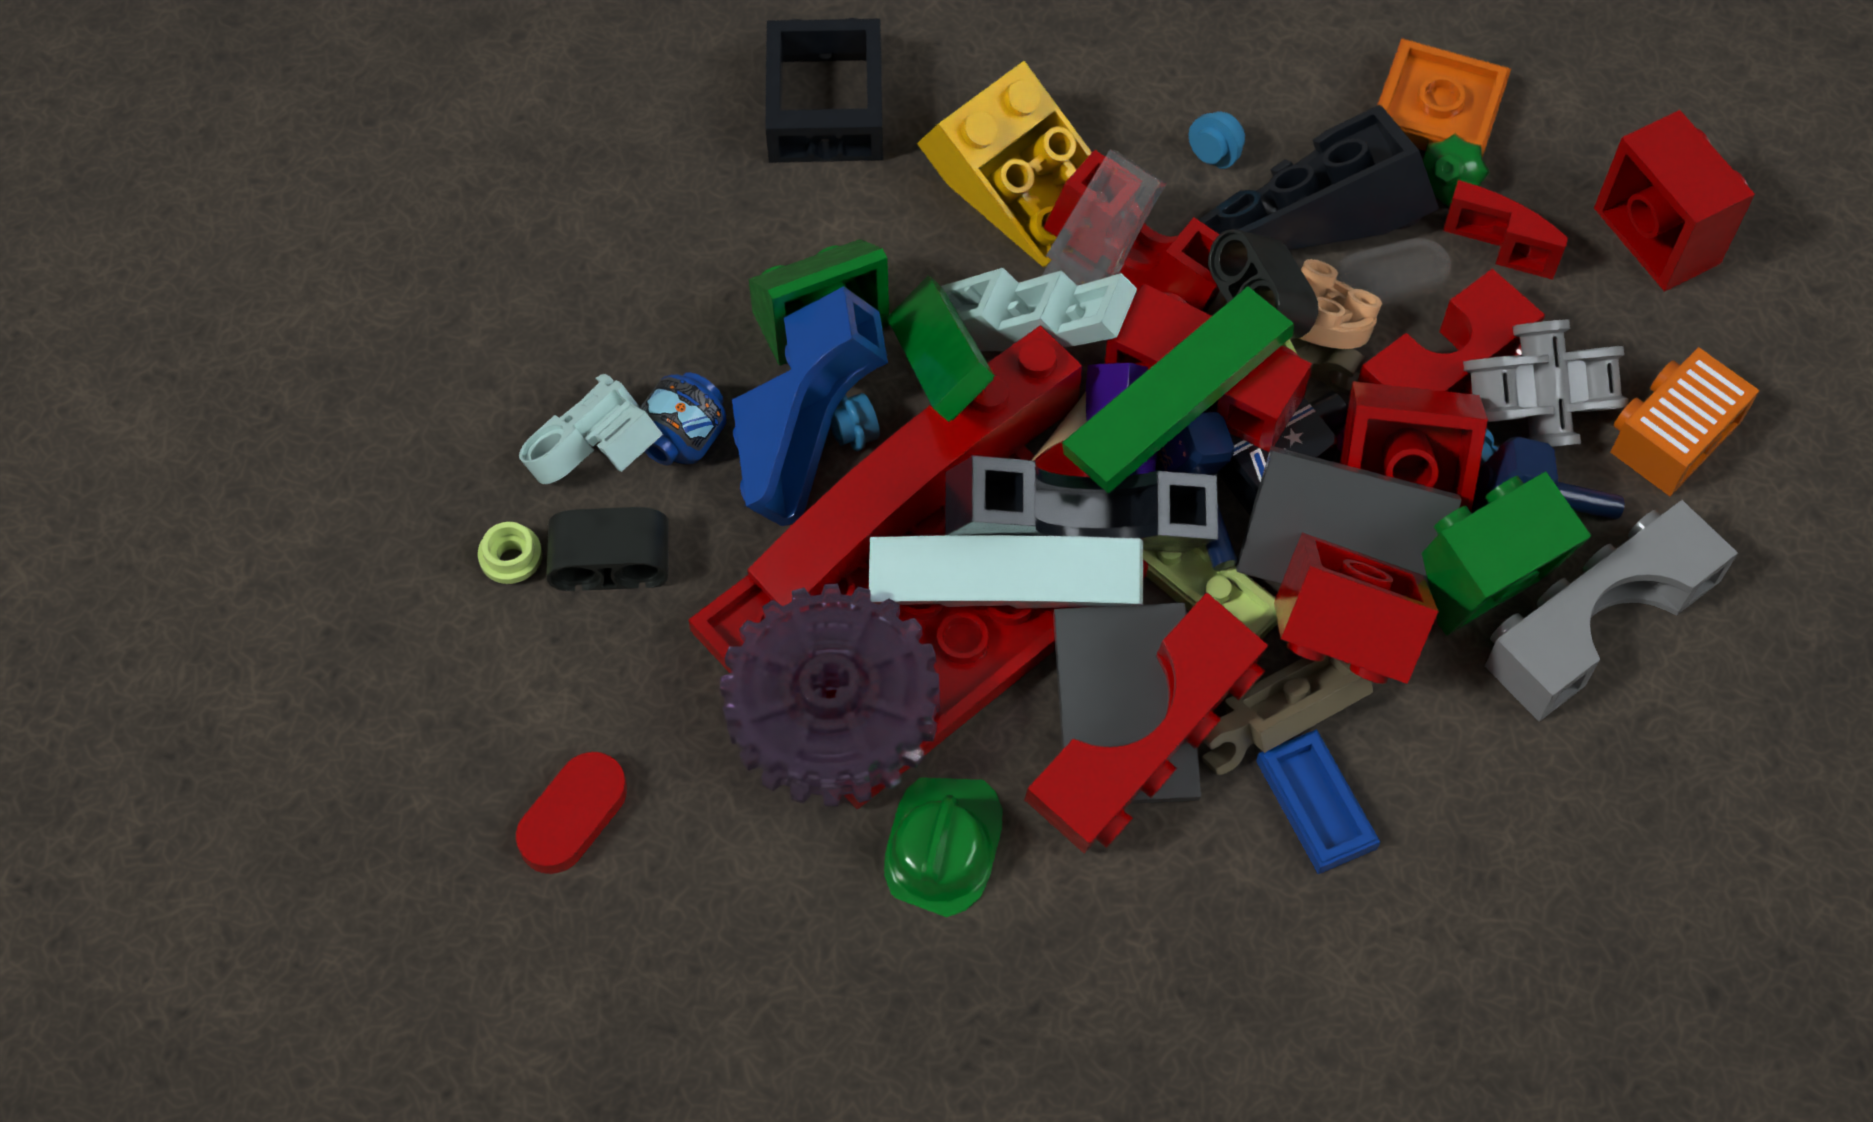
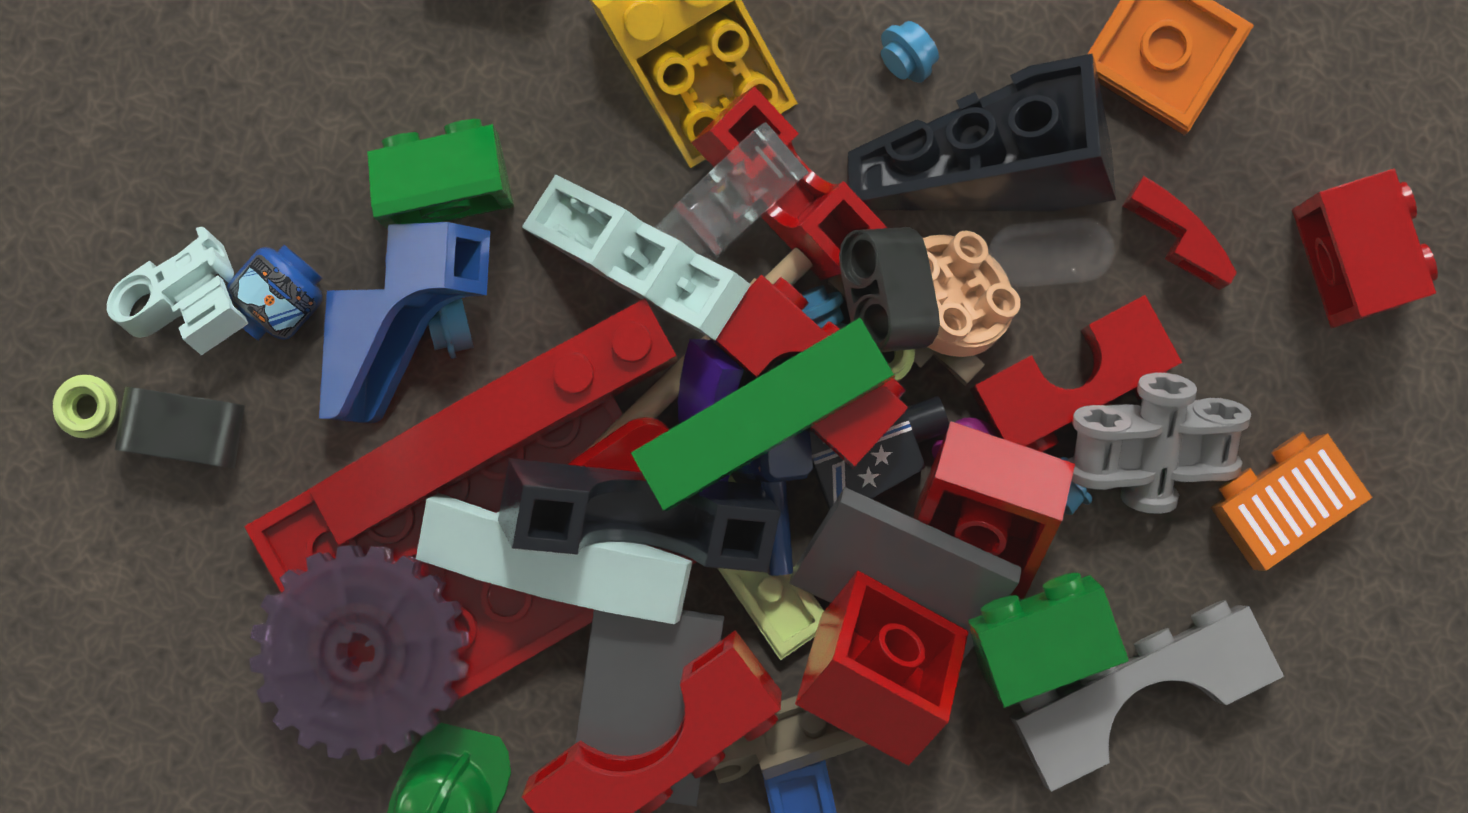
camera: 15 degrees right, 25 degrees up
(571, 812) = (106, 696): red tile -> none
(940, 349) = (538, 299): green tile -> none
(1453, 161) = (1149, 143): green piece -> none
(1531, 458) = (1106, 552): dark blue piece -> none

